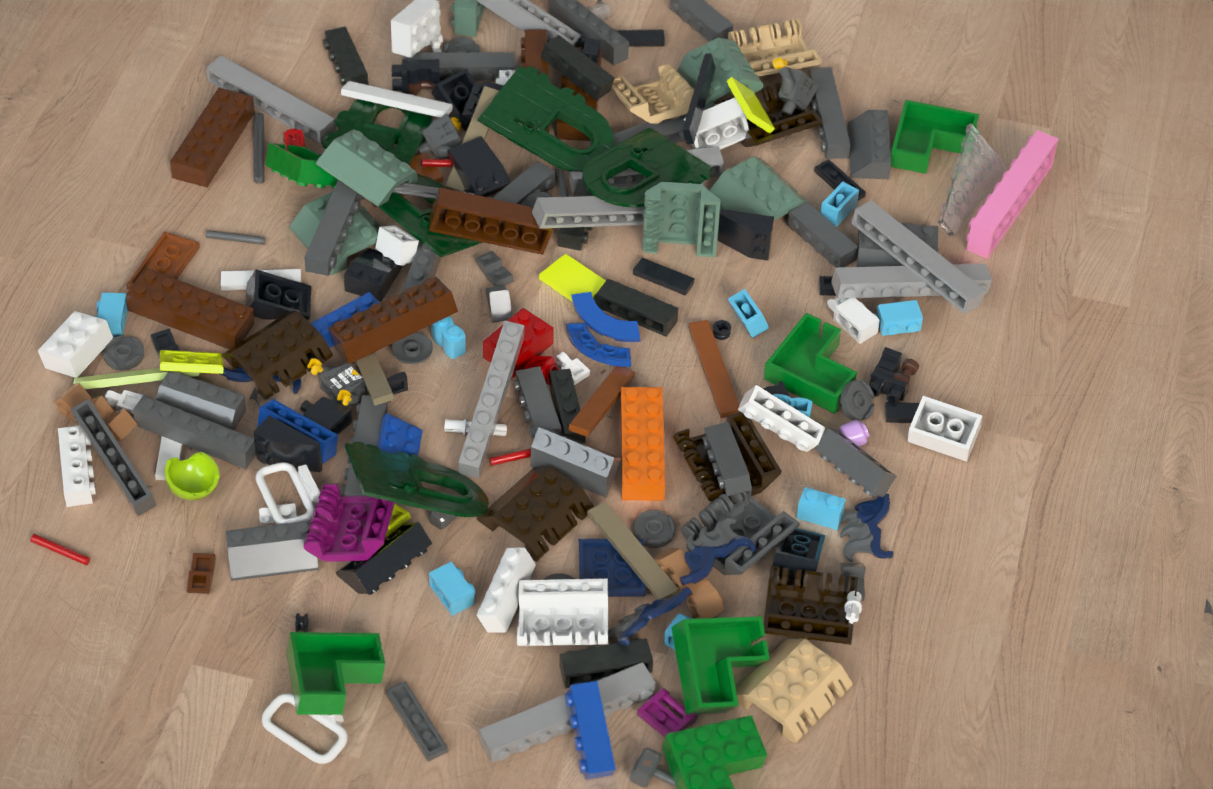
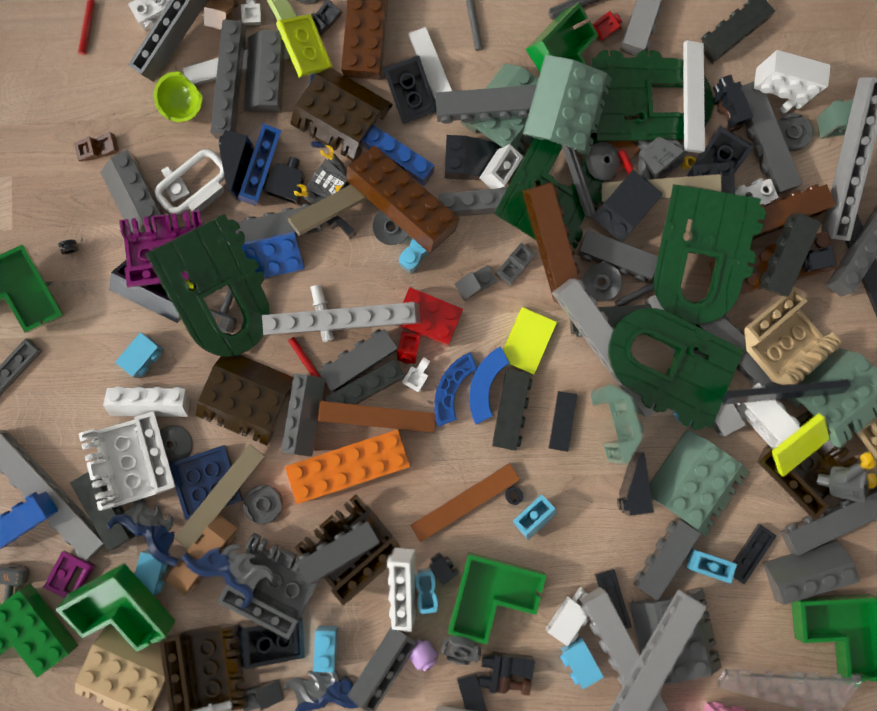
camera: 75 degrees right, 35 degrees up
(429, 176) = (595, 161): none -> dark grey dish

